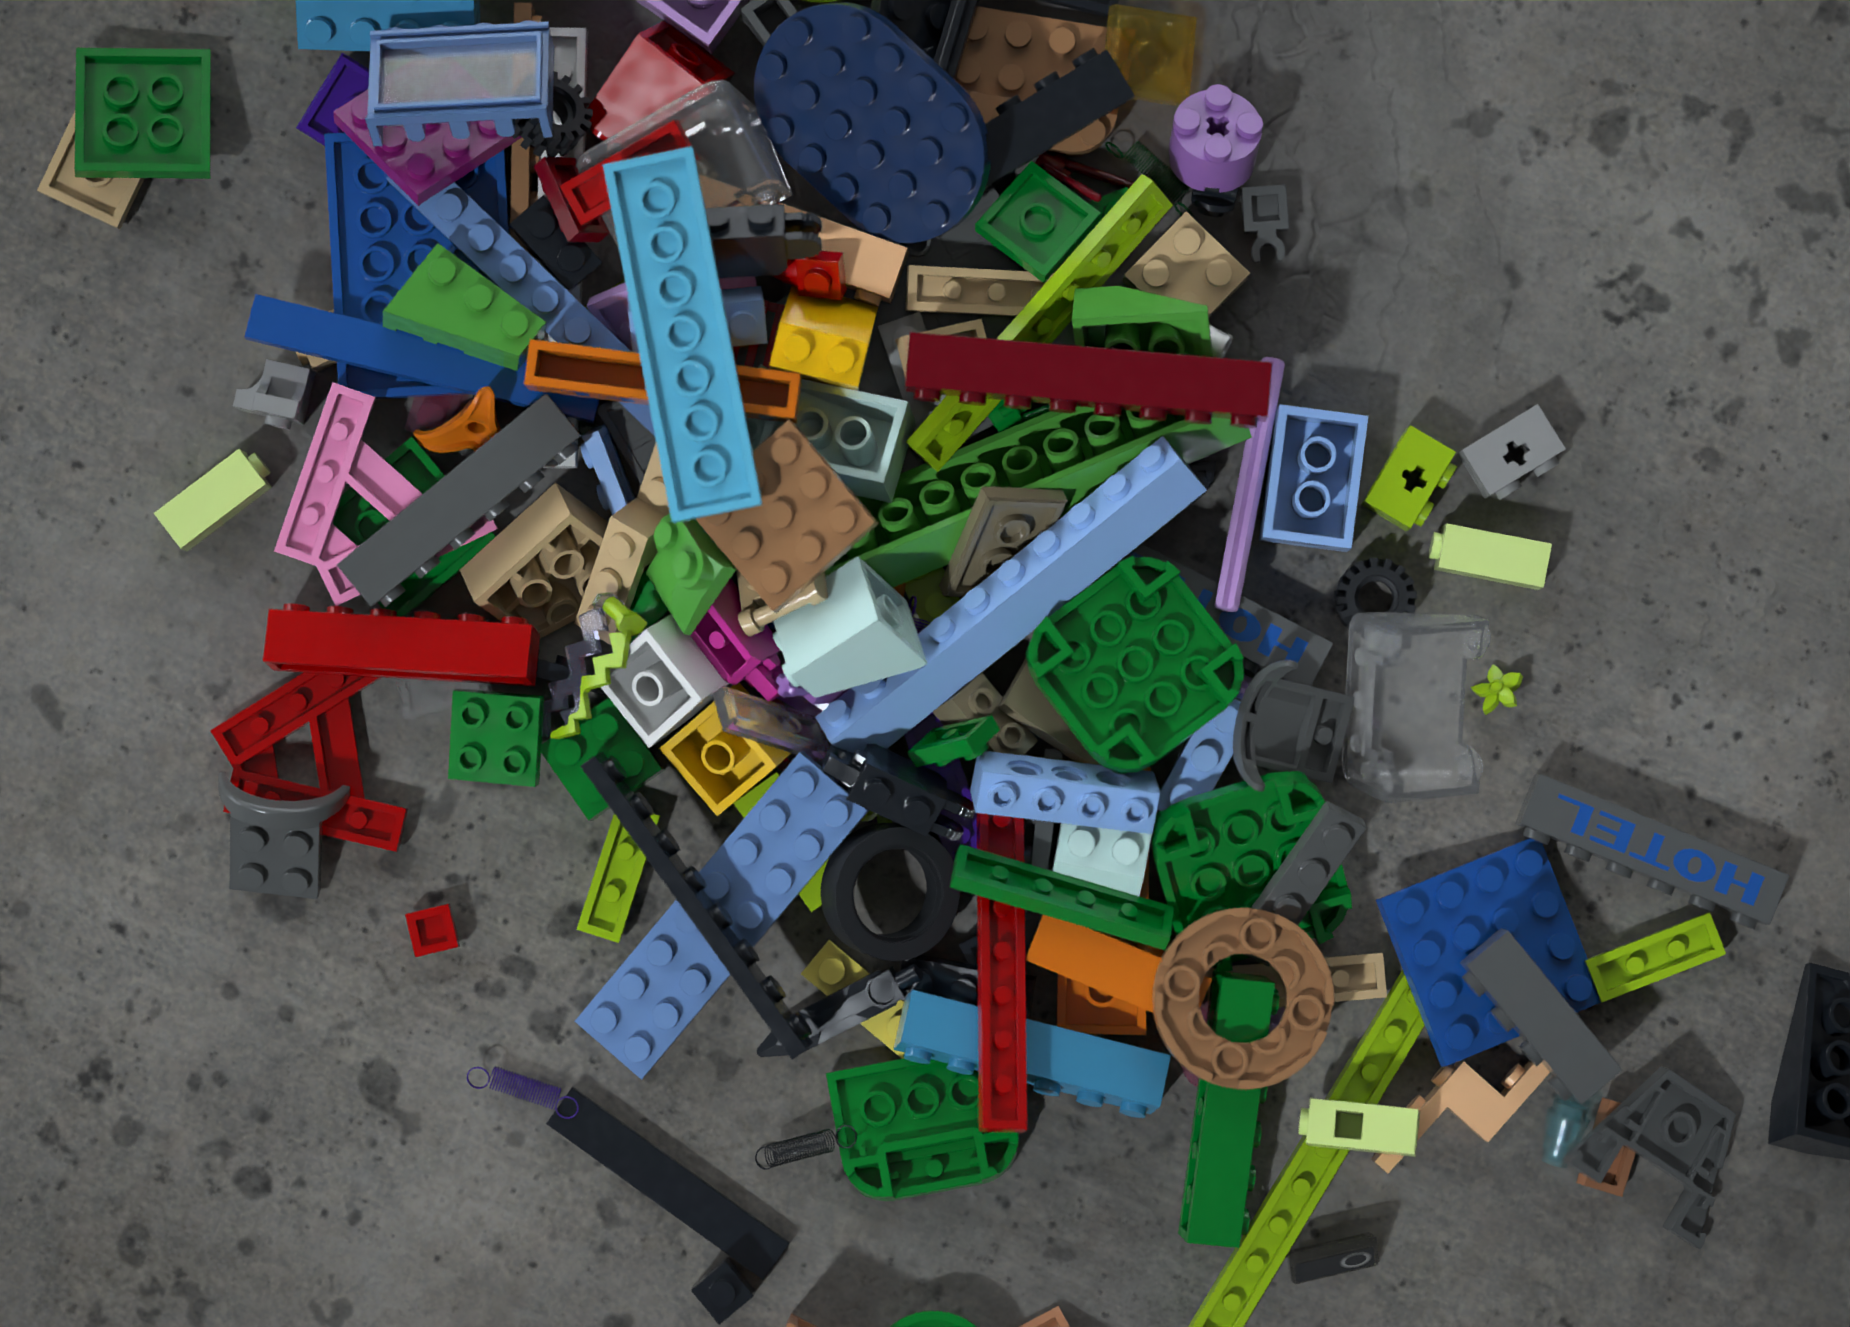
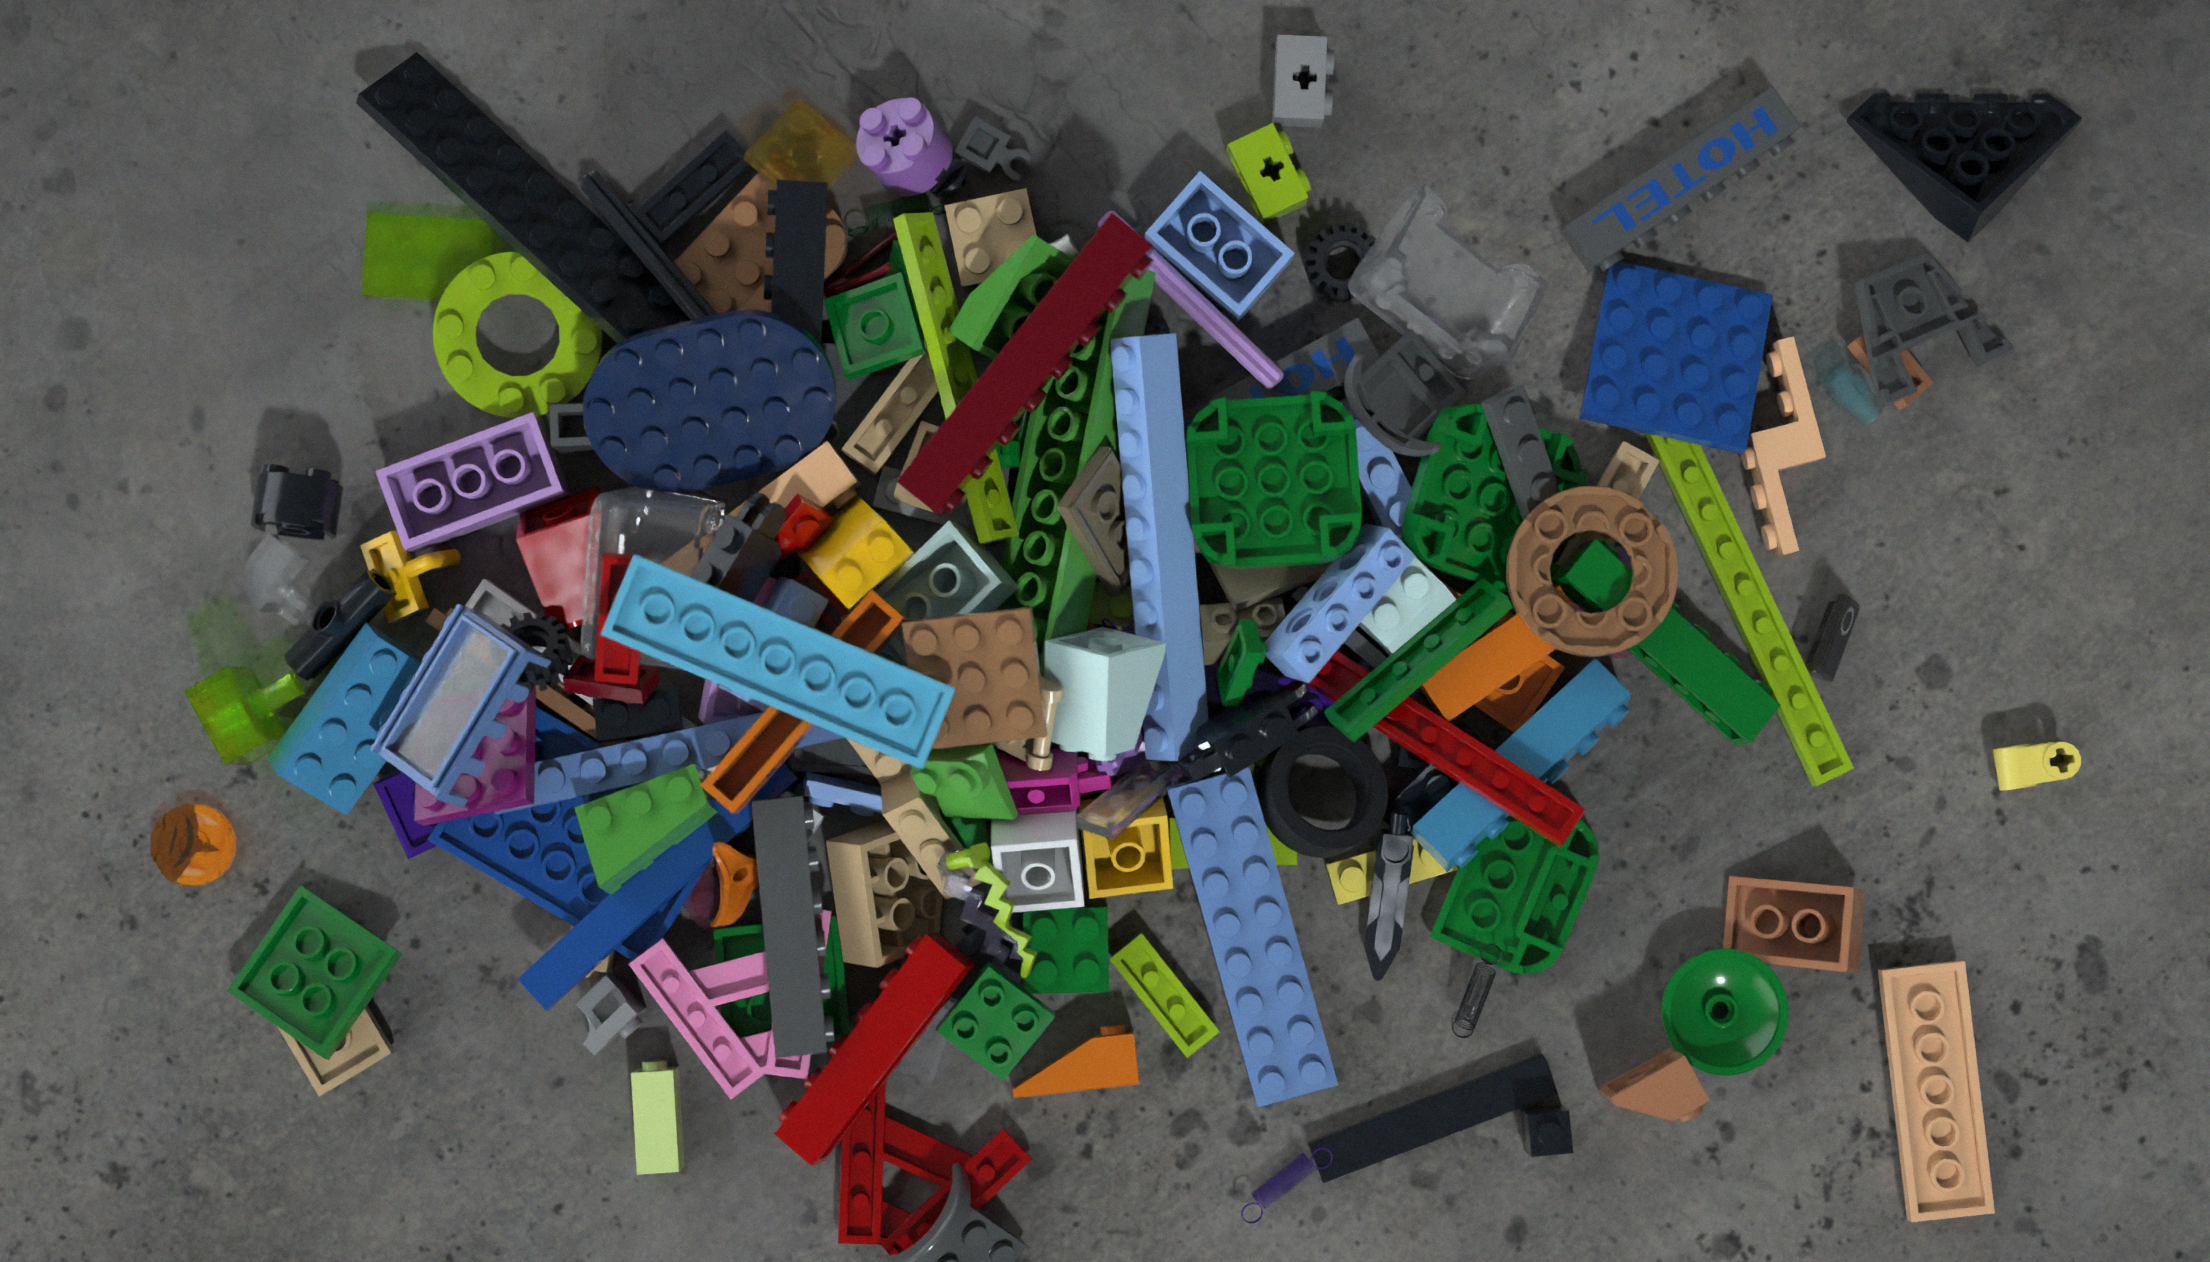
camera: 60 degrees left, 0 degrees up
(432, 930) = (1112, 1171): red plate -> none
(516, 850) = (1094, 1063): none -> orange slope
(709, 918) = (1251, 948): black plate -> none
(1360, 1127) = (1751, 547): yellowish green brick -> none
(1490, 556) = (1370, 151): yellowish green brick -> none
(1499, 689) = (1477, 214): lime plant -> none
(1540, 1016) = (1758, 350): dark grey brick -> none
(1655, 957) = (1765, 232): lime plate -> none

